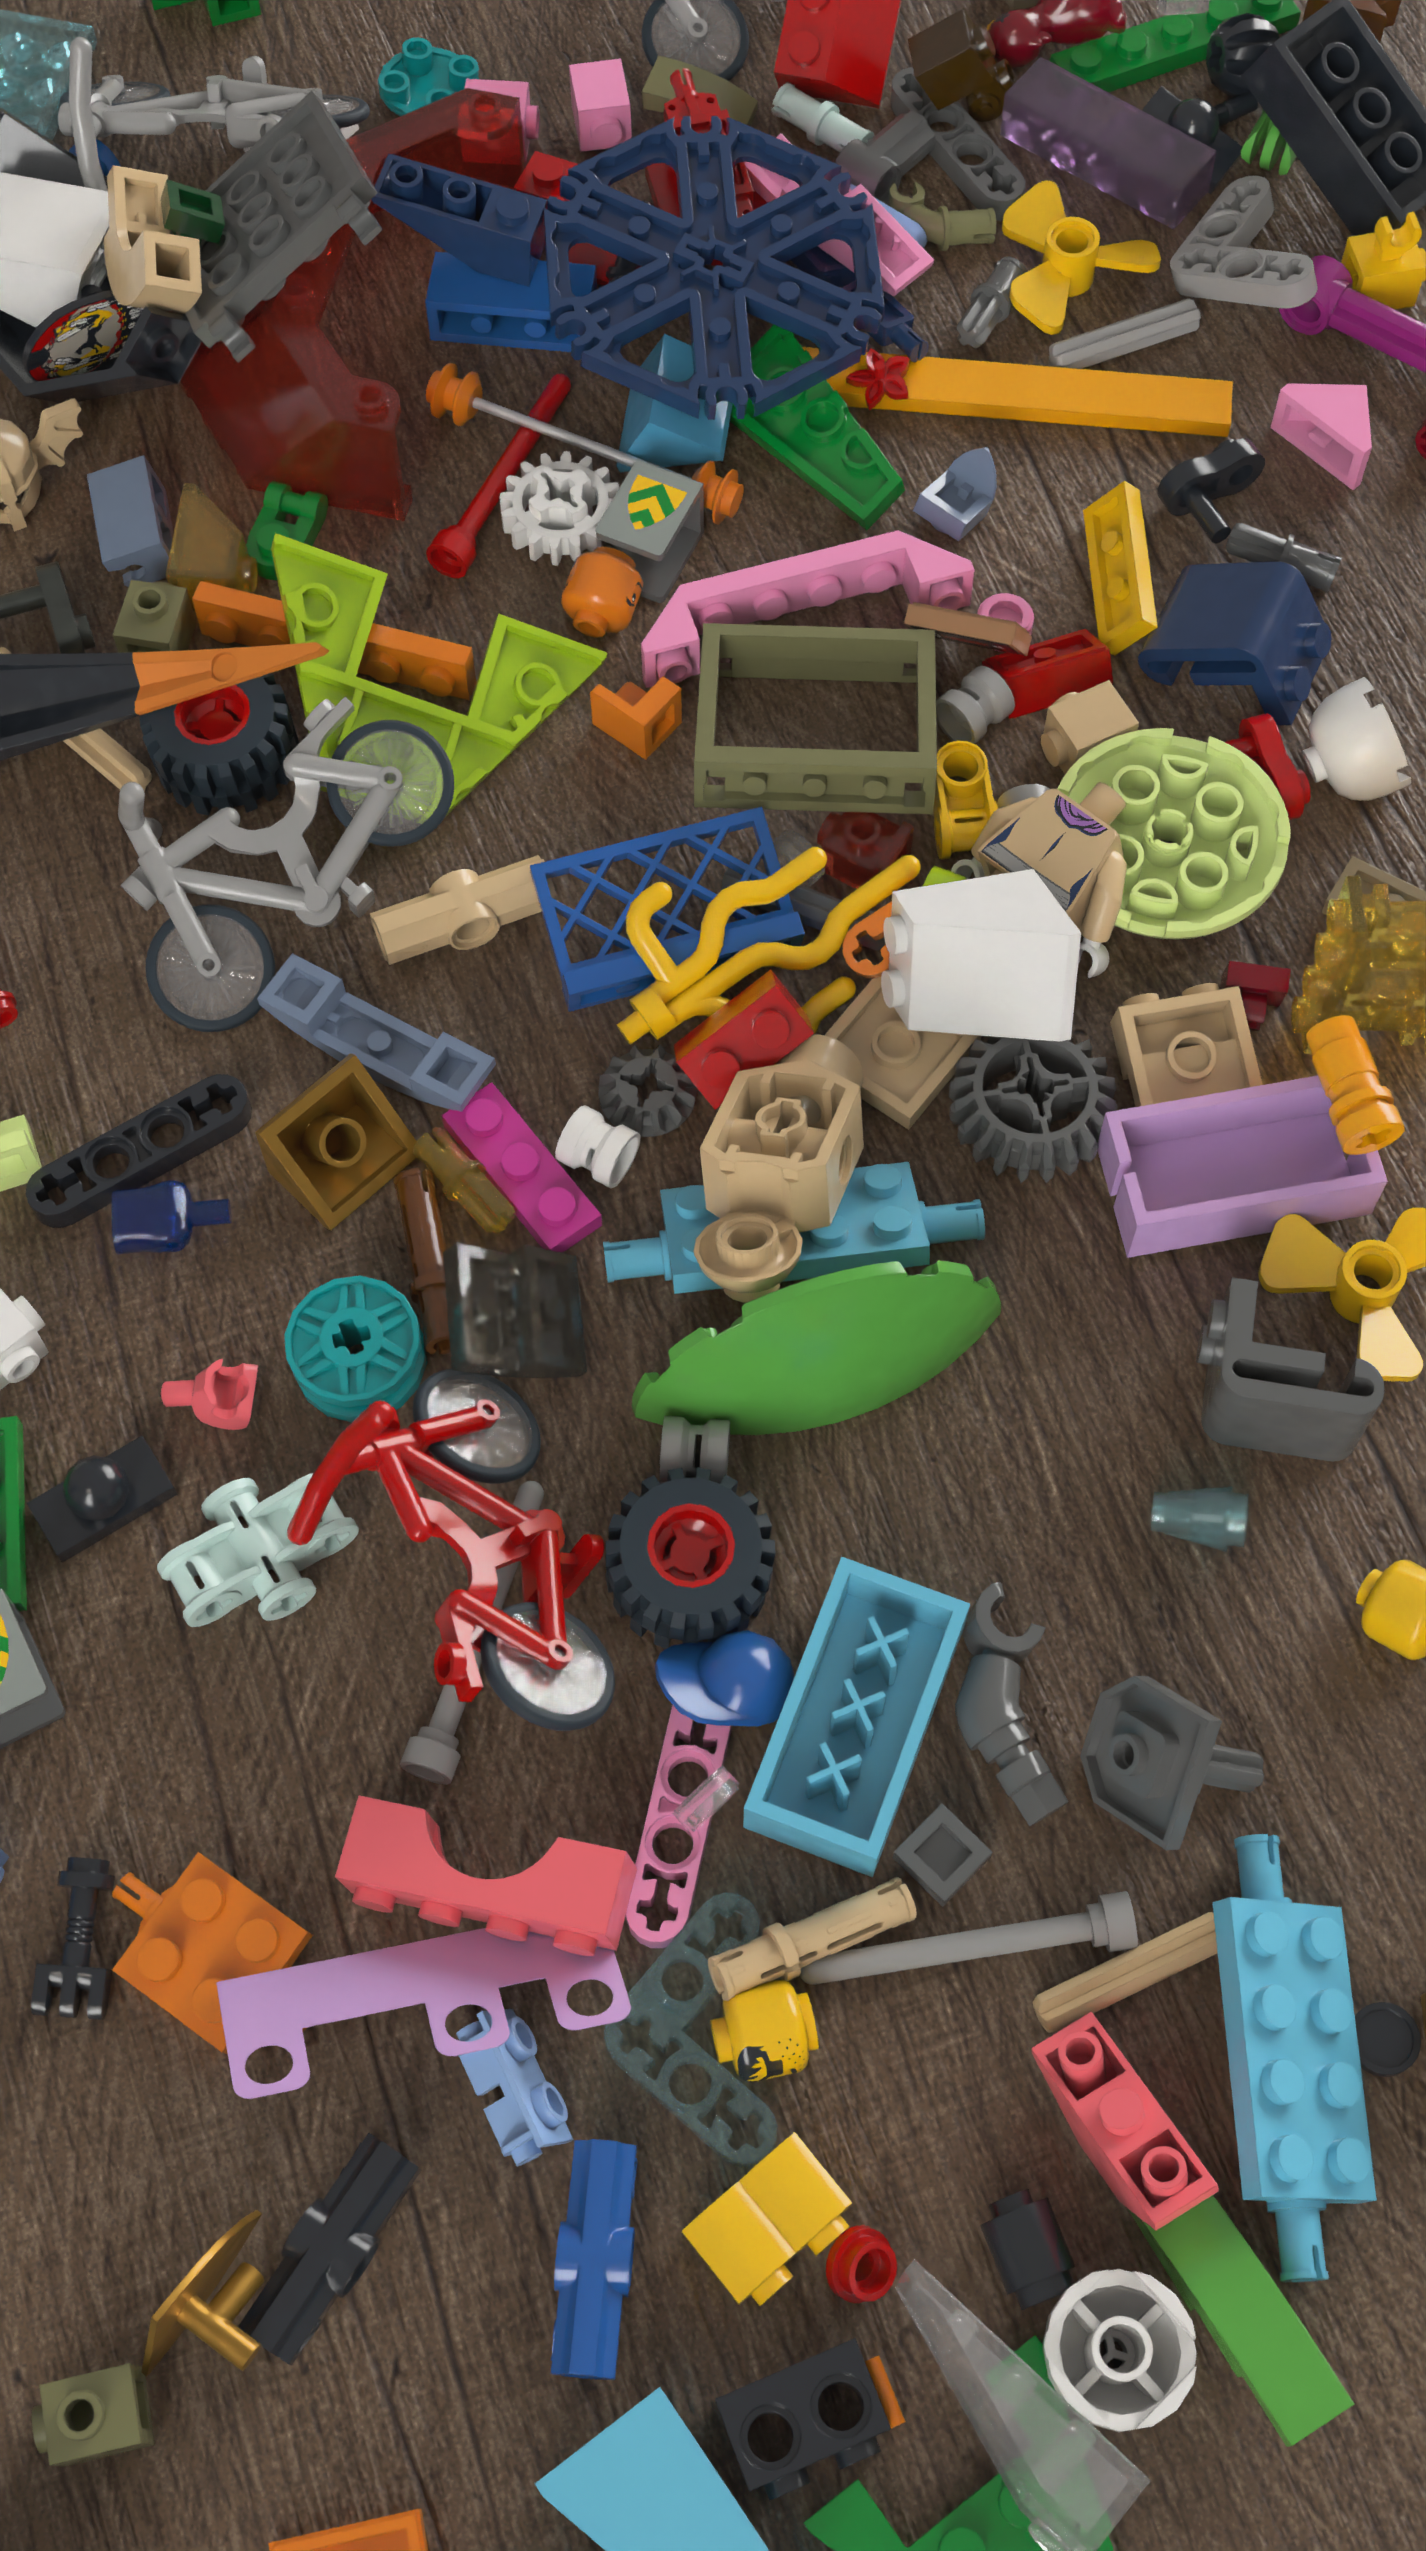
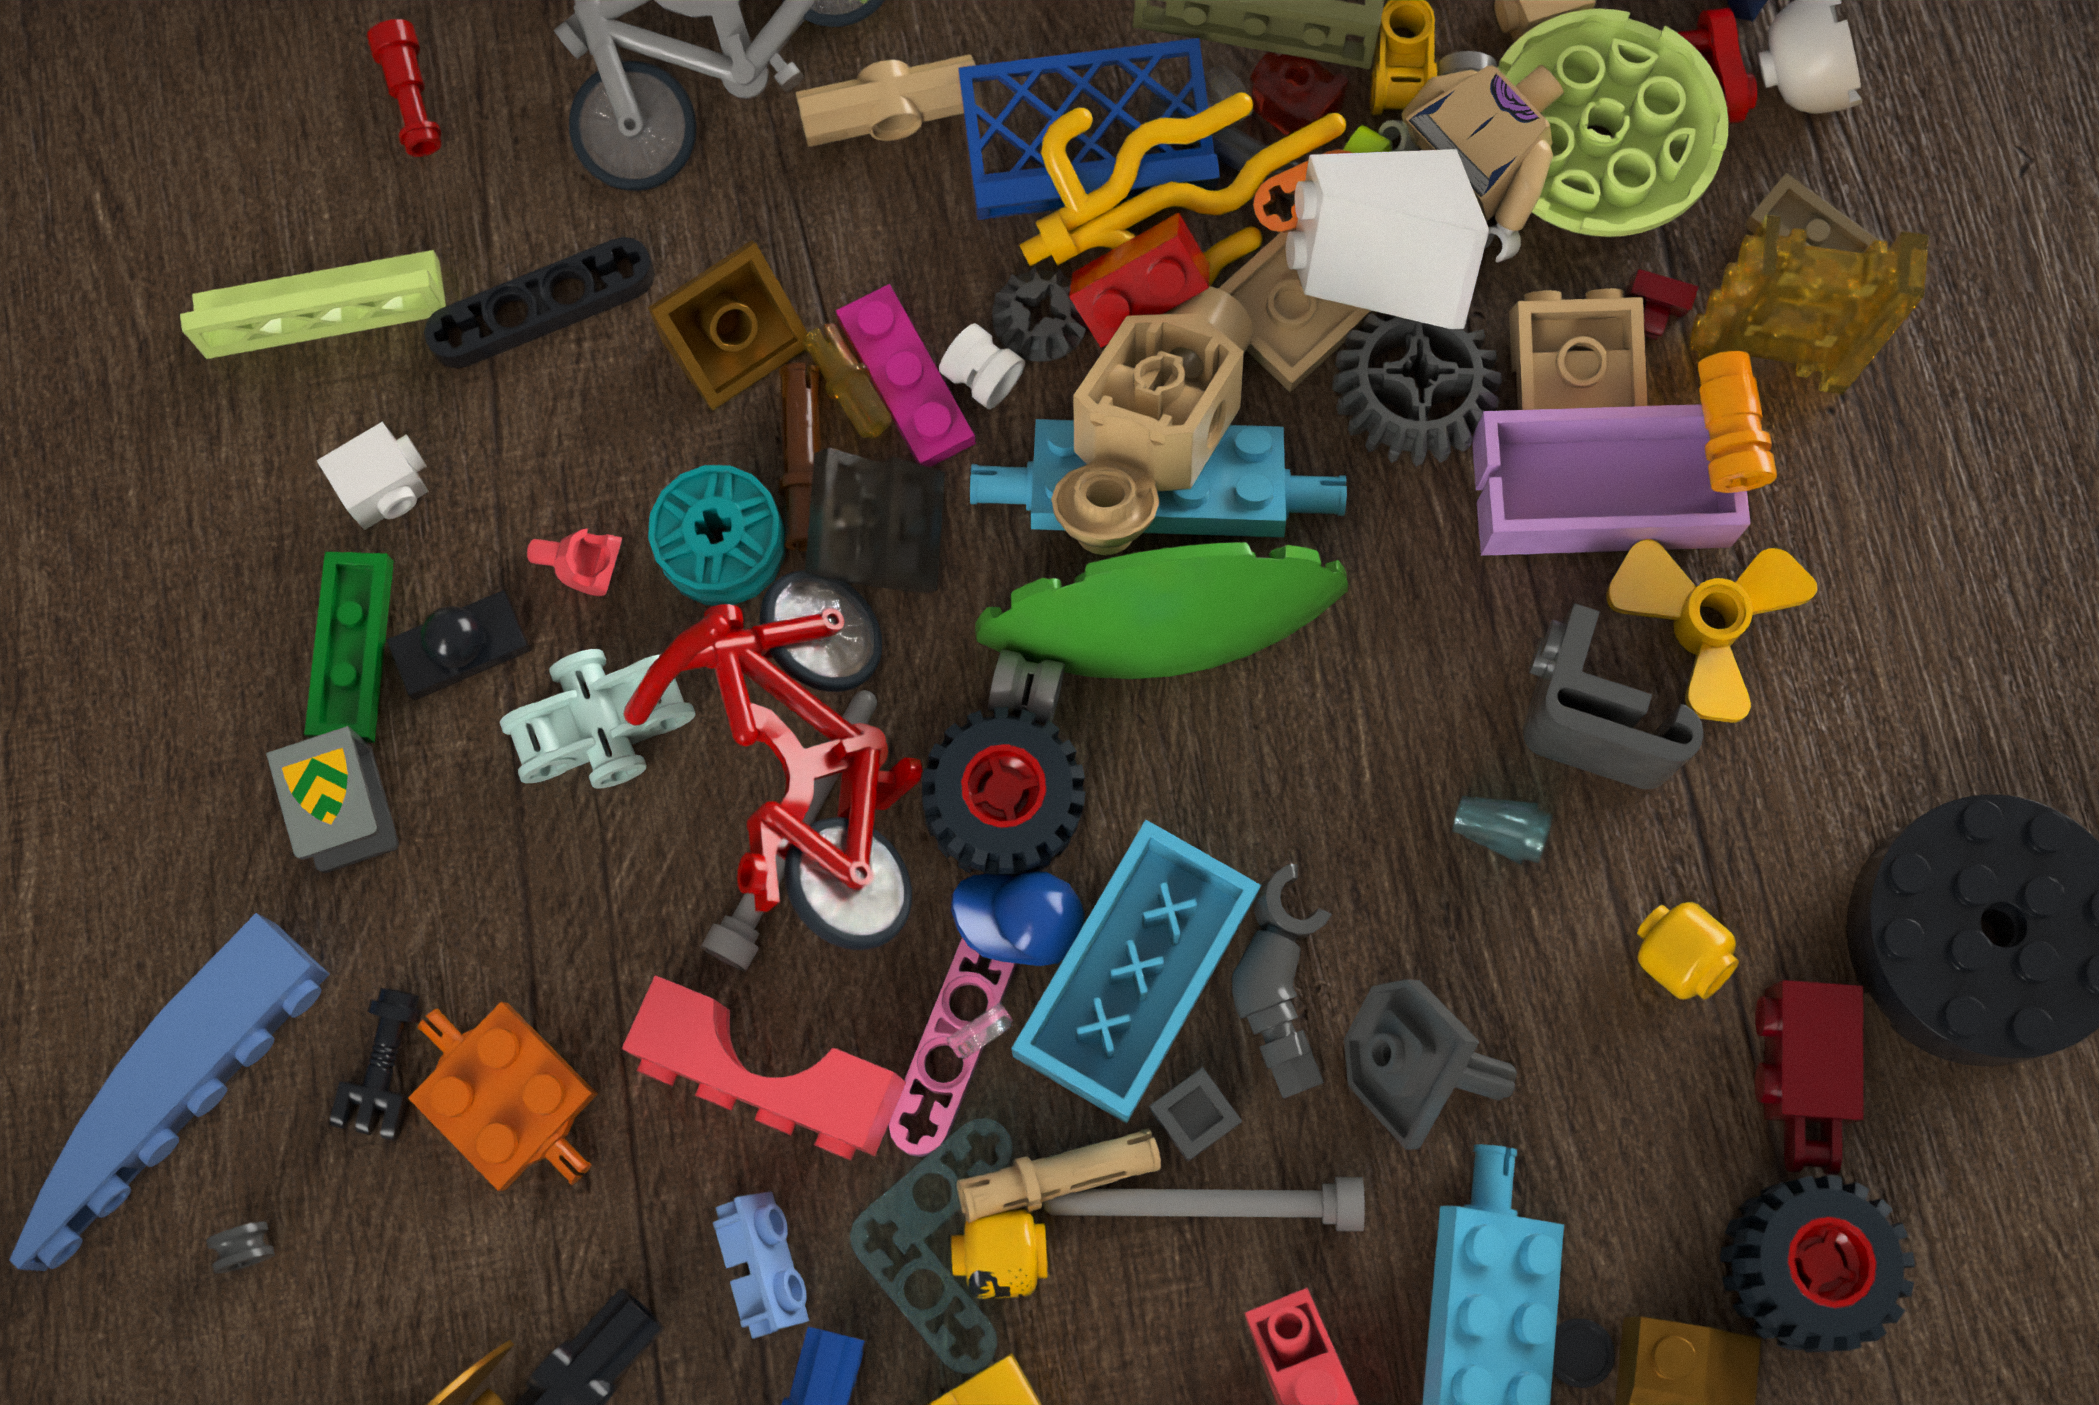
camera: 10 degrees right, 10 degrees up
(161, 1217) = (551, 374): clear blue piece -> none
(392, 1052) = (780, 222): sand blue slope -> none
(436, 1971) = (703, 1150): lavender piece -> none
(1127, 1974) = (1348, 1254): tan axle -> none

